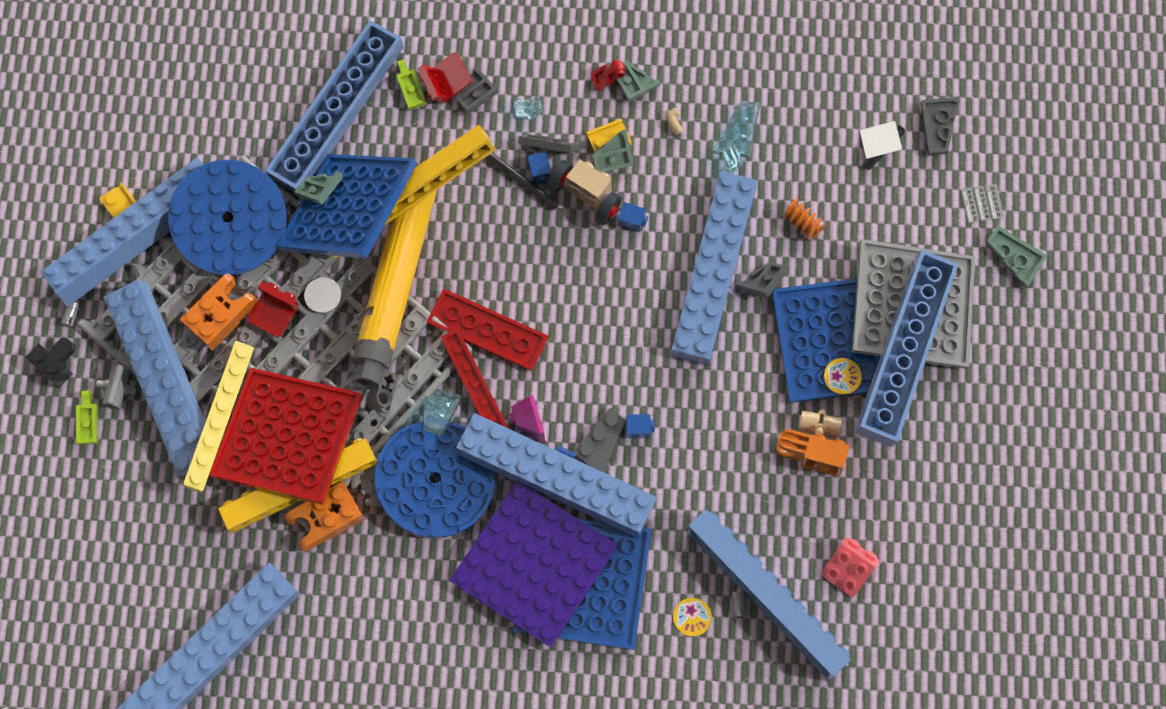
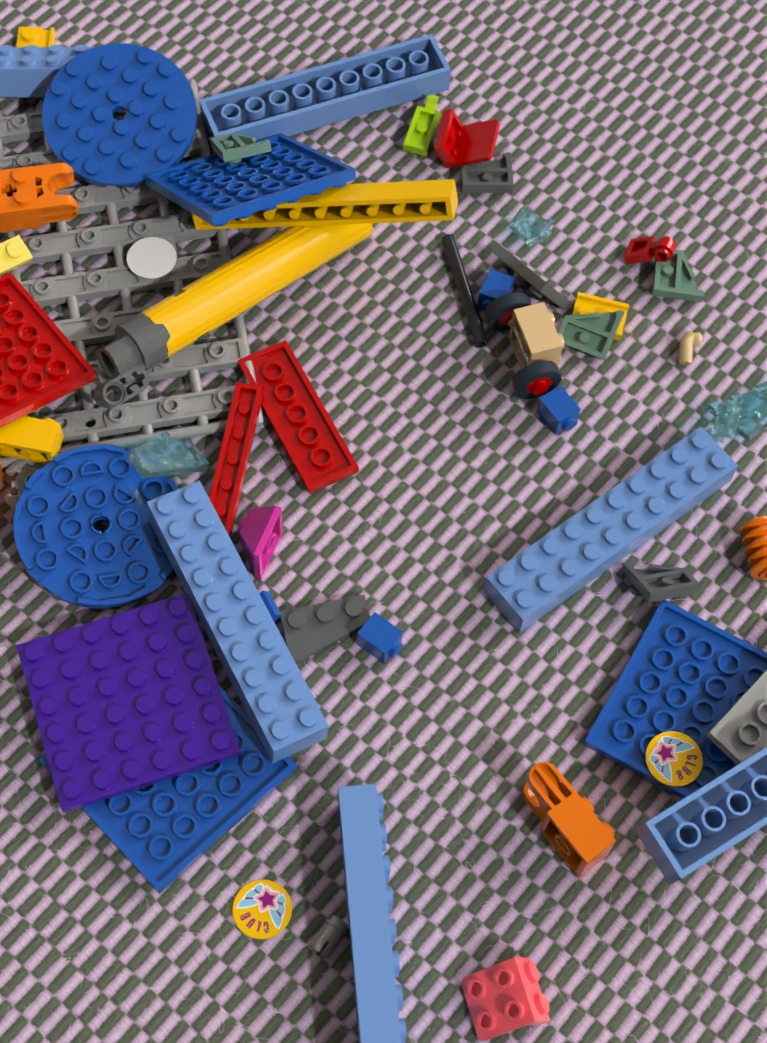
camera: 30 degrees right, 10 degrees down
(273, 309) = (86, 234): red bracket -> none
(820, 424) = (602, 793): tan pin -> none

